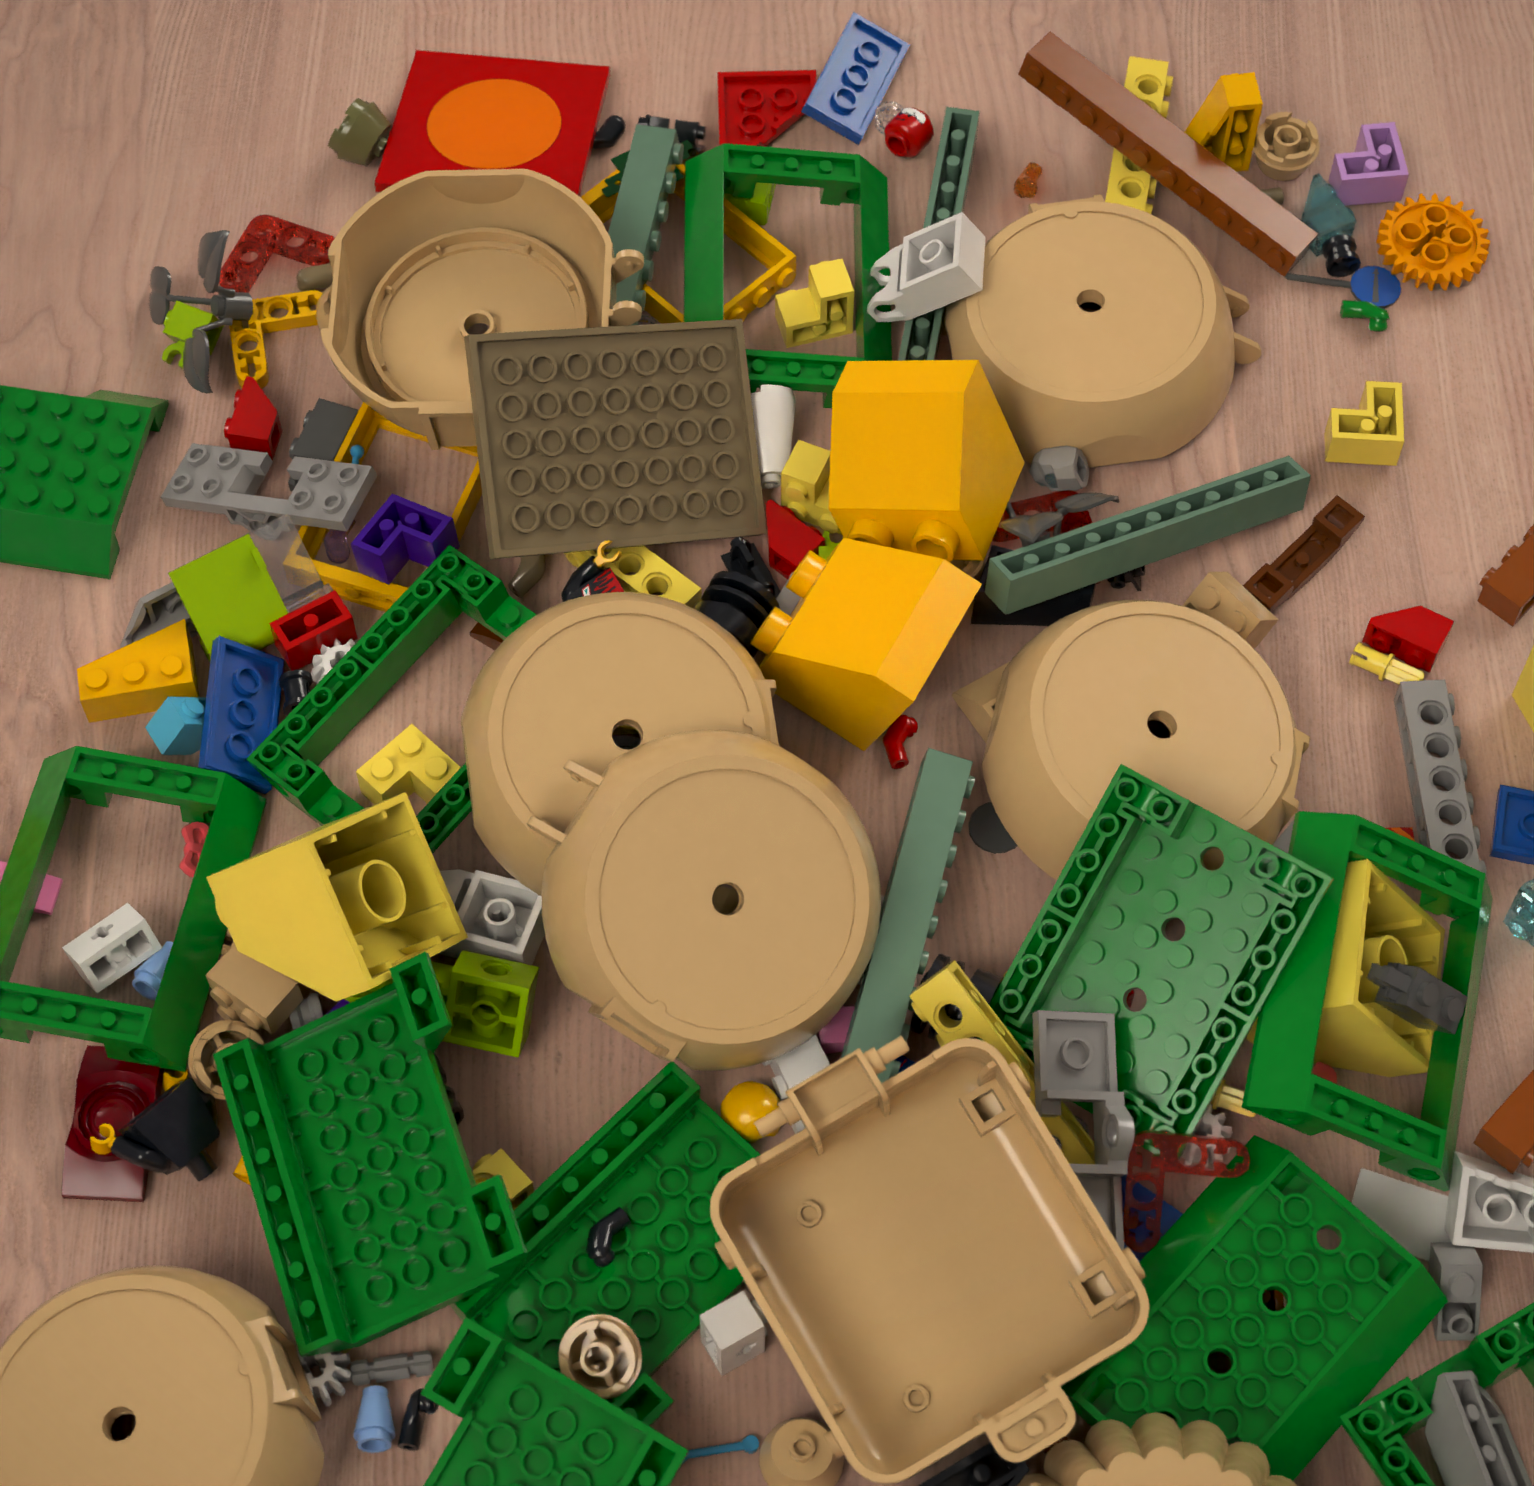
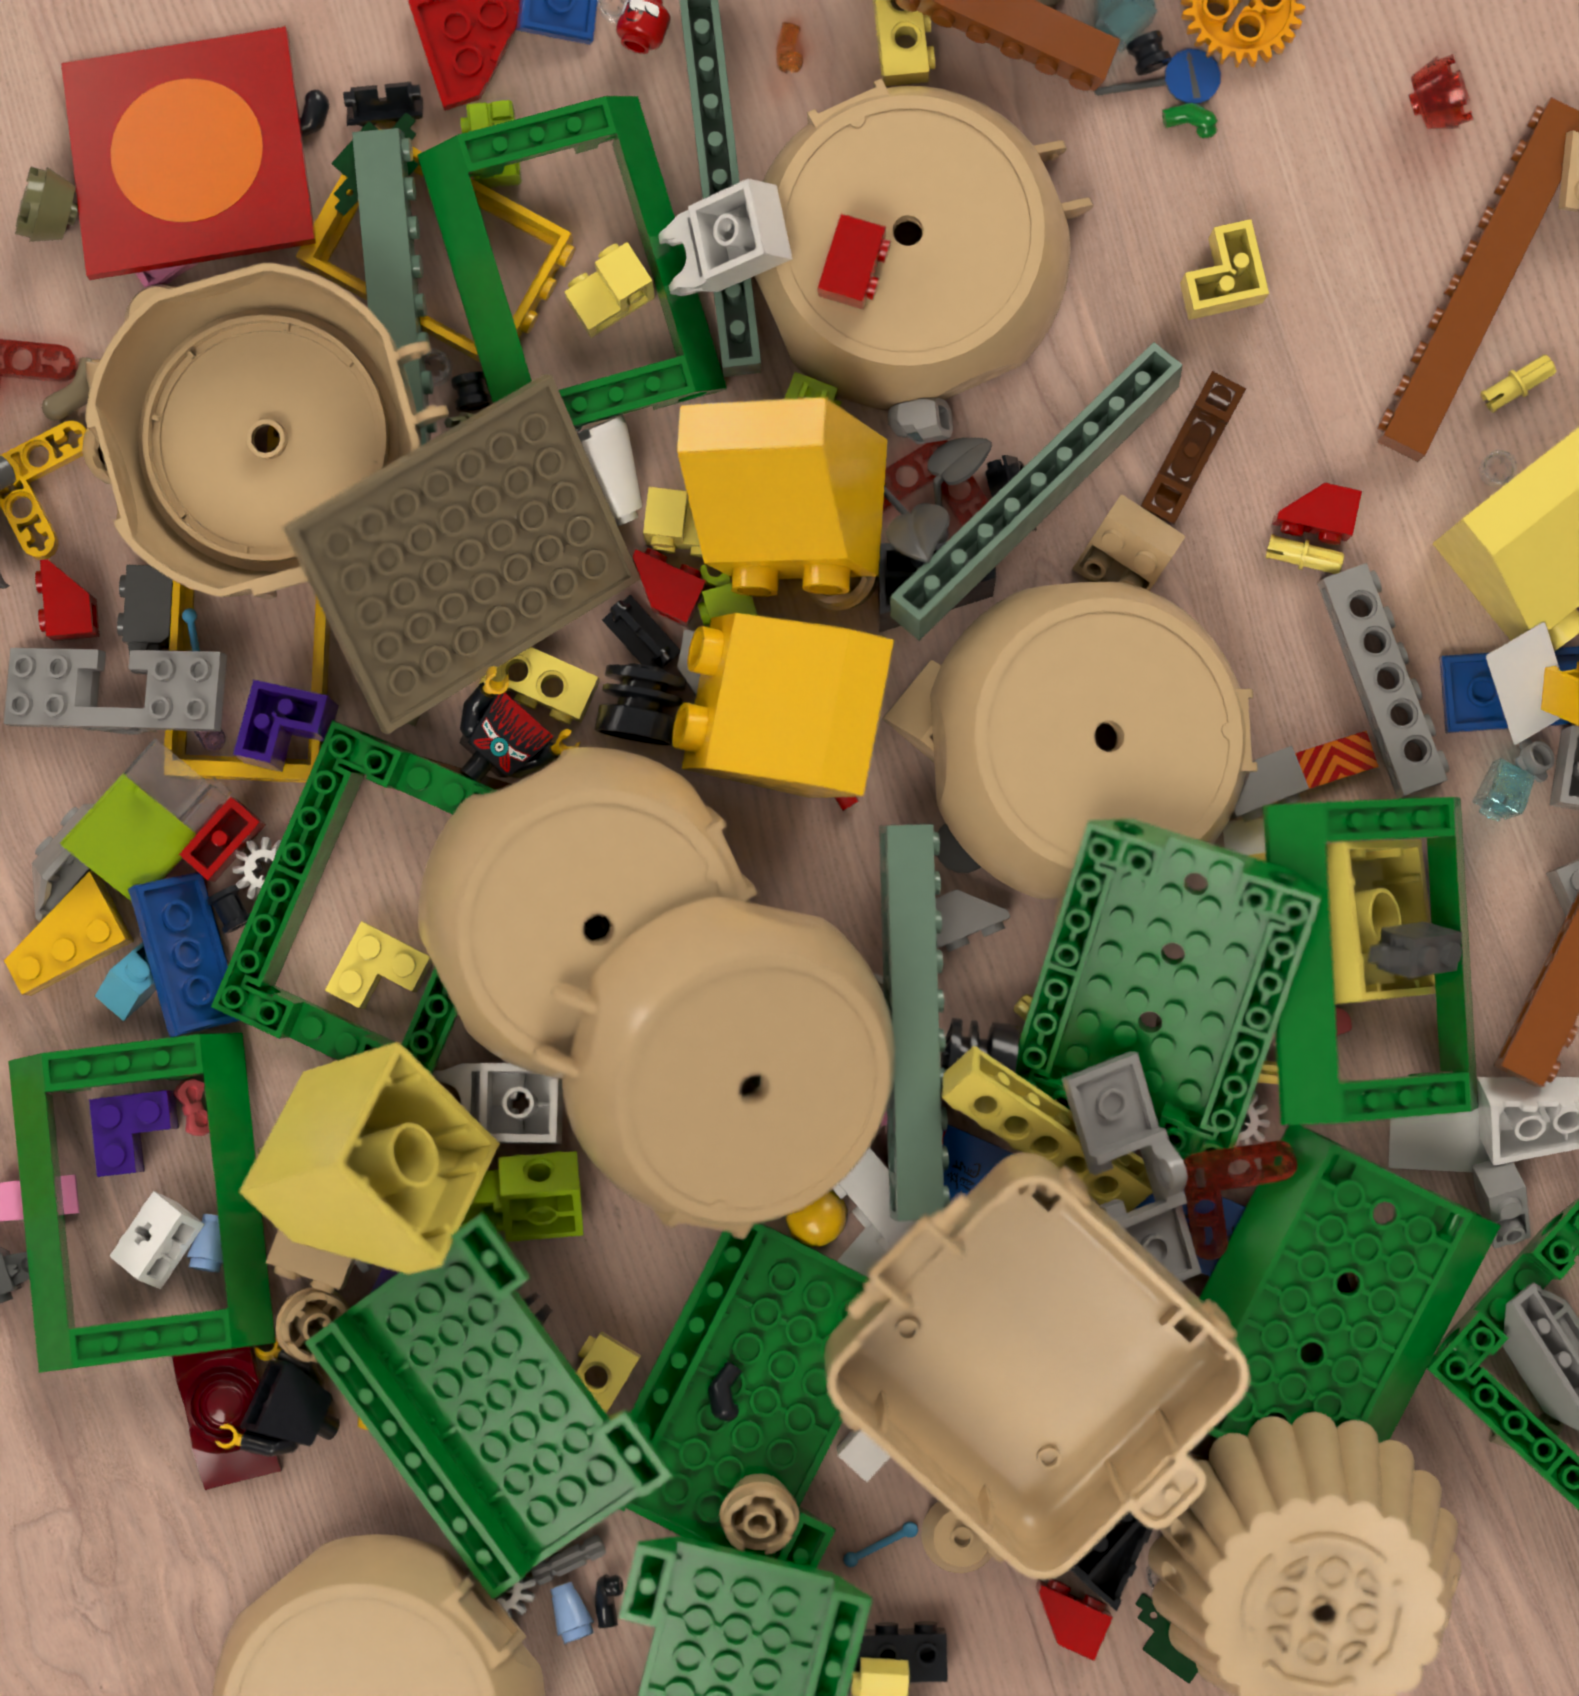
camera: 20 degrees left, 25 degrees up
(127, 838) = (119, 1125): none -> dark purple brick
(979, 882) = (964, 916): none -> light grey slope
(1035, 304) = (853, 262): none -> red brick

